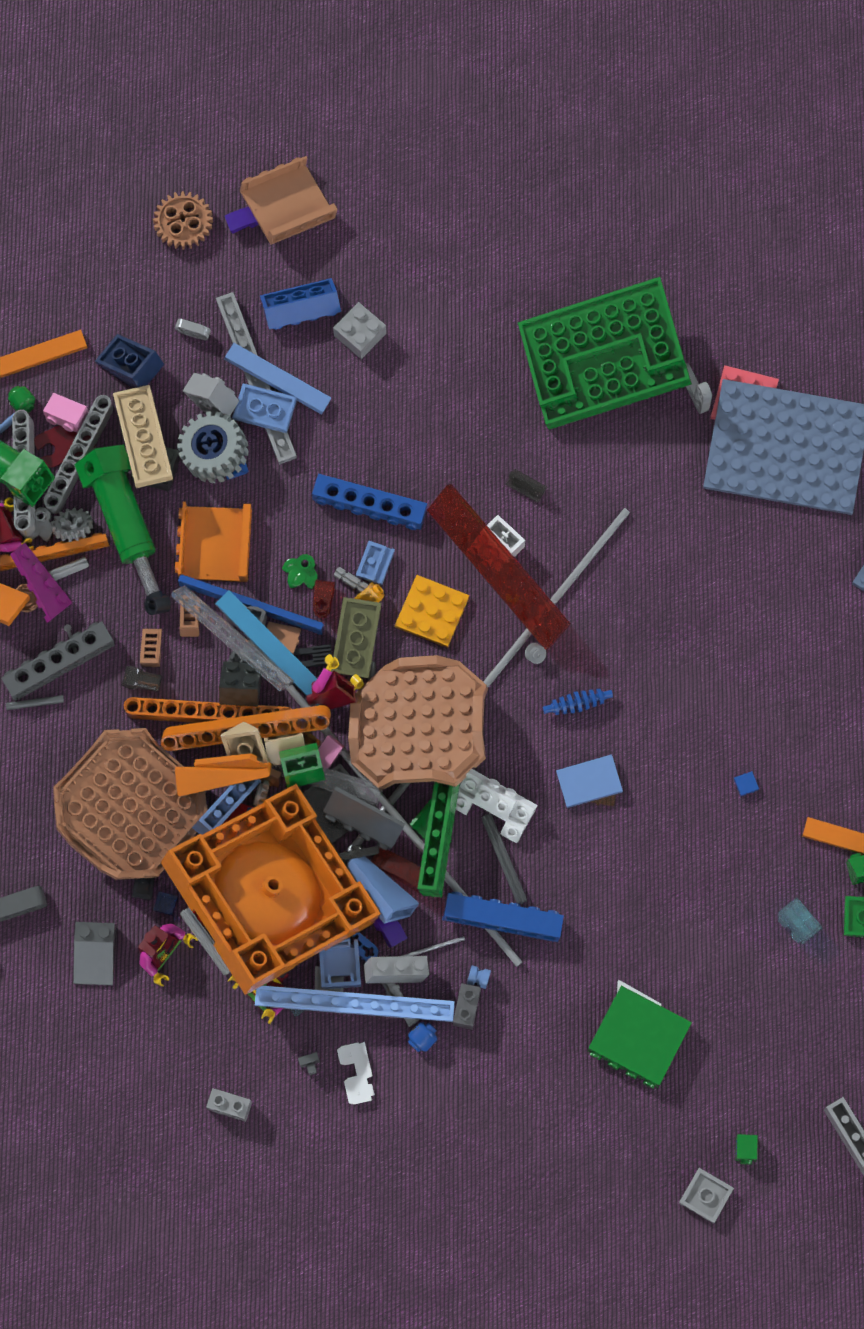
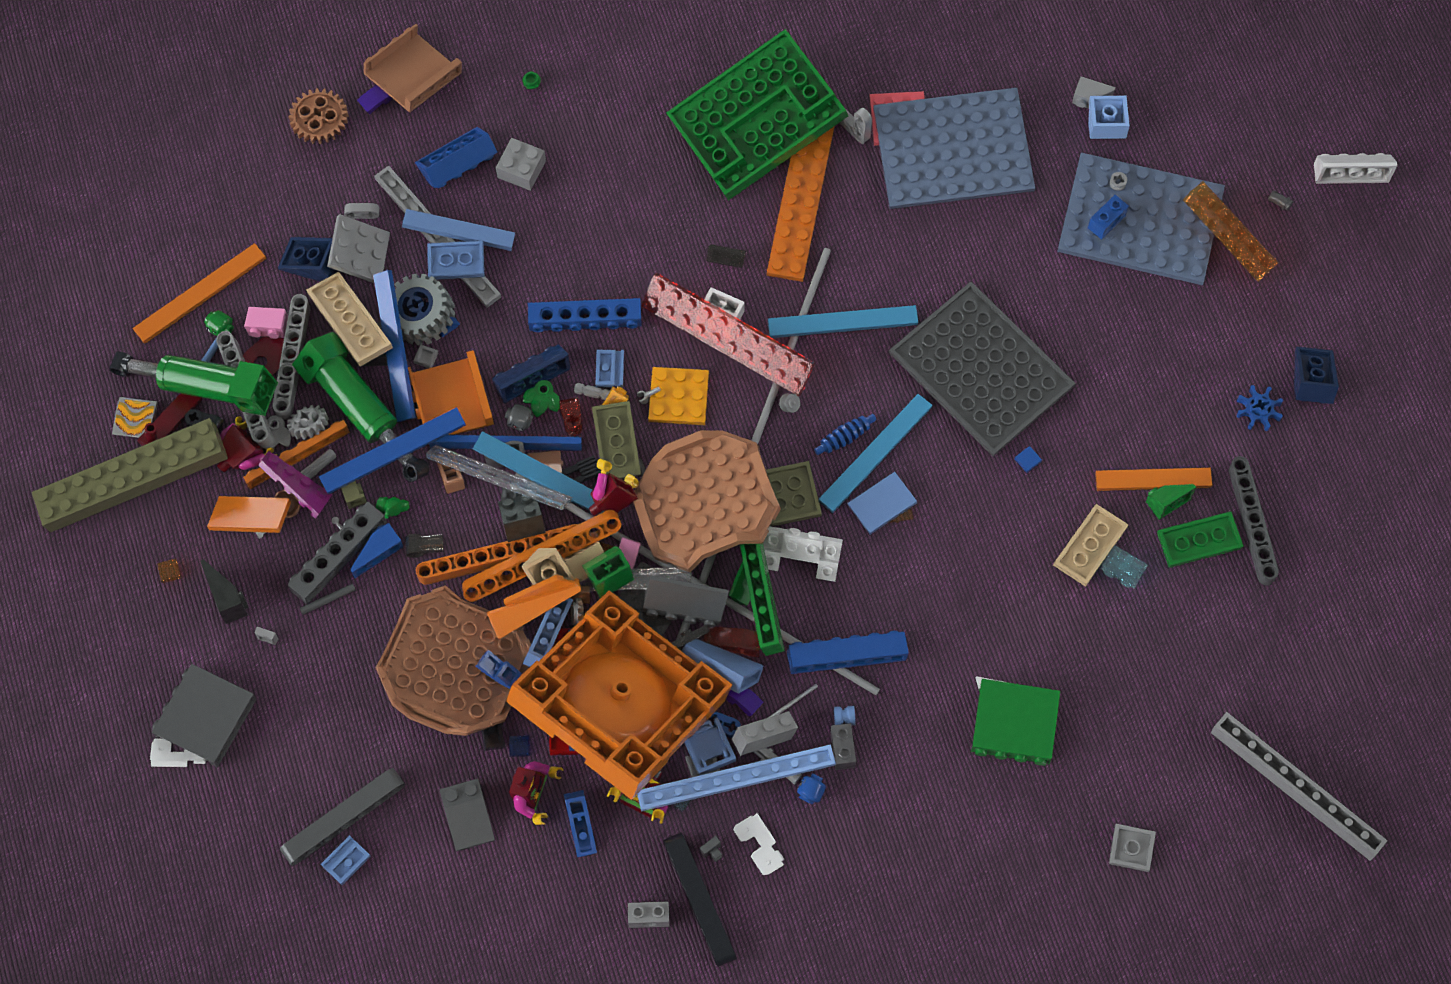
camera: 20 degrees left, 5 degrees down
(91, 606) = (353, 495): none -> olive brick
(98, 668) = (378, 547): none -> blue slope
(123, 632) = (392, 506): none -> green animal
(140, 579) = (392, 450): none -> blue tile
(151, 662) = (424, 526): nougat slope -> none
(168, 826) = (500, 671): none -> blue slope
(173, 366) = (358, 248): none -> light grey plate
(175, 488) = (396, 356): none -> blue tile
(196, 996) = (580, 823): none -> blue slope
(204, 938) = (572, 768): light grey axle -> none
(205, 494) = (425, 356): none -> light grey tile
(211, 394) = (402, 260): light grey brick -> none
(272, 584) = (519, 417): none -> dark grey head
(281, 1106) = (699, 899): none -> black beam
(293, 544) = (525, 375): none -> dark blue slope
(399, 247) = (531, 80): none -> green plate
(402, 601) = (645, 400): none -> light grey hand
(504, 859) = (828, 599): dark grey axle -> none
(506, 743) = (794, 492): none -> olive plate
(600, 729) = (875, 453): none -> dark azure tile
(613, 461) = (799, 210): none -> orange plate
(615, 588) = (842, 321): none -> dark azure tile
(734, 679) = (982, 368): none -> dark grey plate
(746, 1149) = (1153, 791): green brick -> none
(775, 888) = (1090, 545): none -> tan plate

